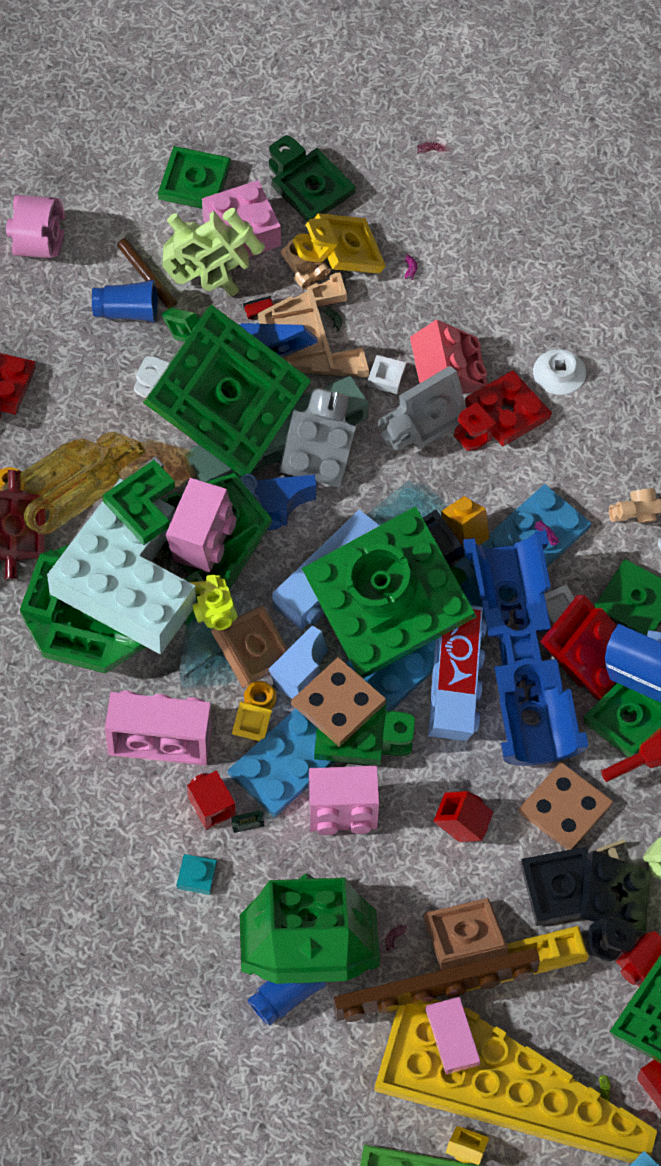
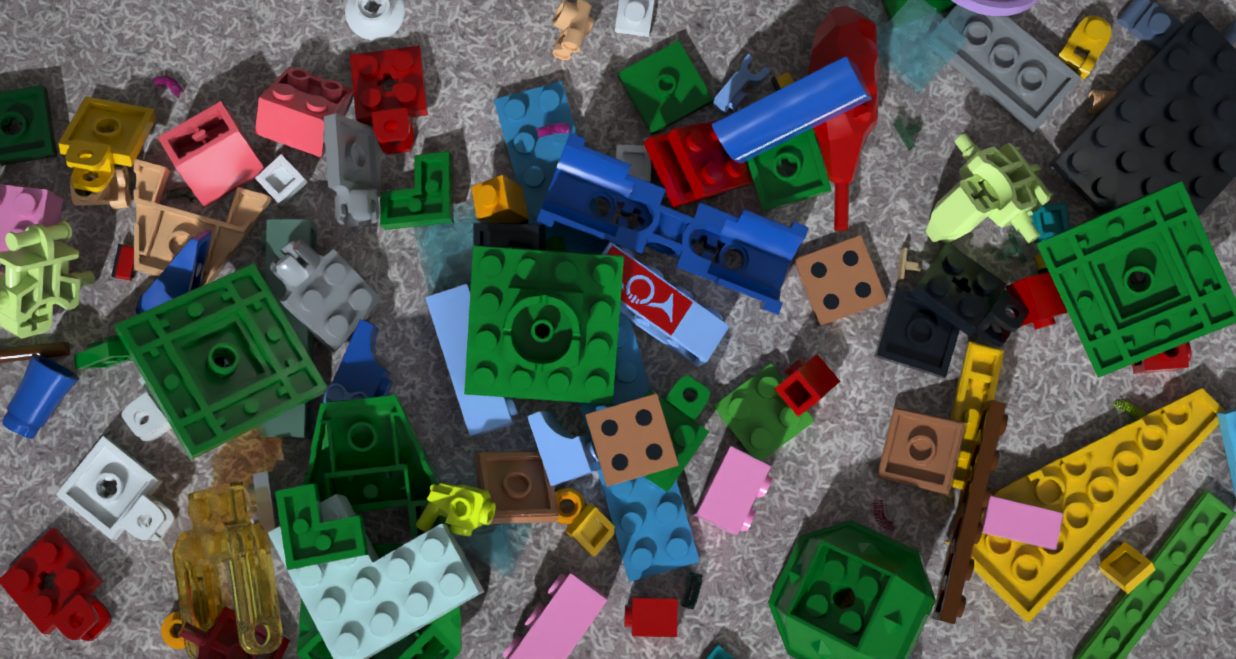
camera: 60 degrees left, 20 degrees up
(82, 402) = (130, 506): none -> white plate
(201, 525) = (371, 477): bright pink brick -> none
(376, 317) = (212, 153): none -> coral slope
(415, 802) = (760, 415): none -> bright green plate
(437, 479) = (426, 203): none -> green plate

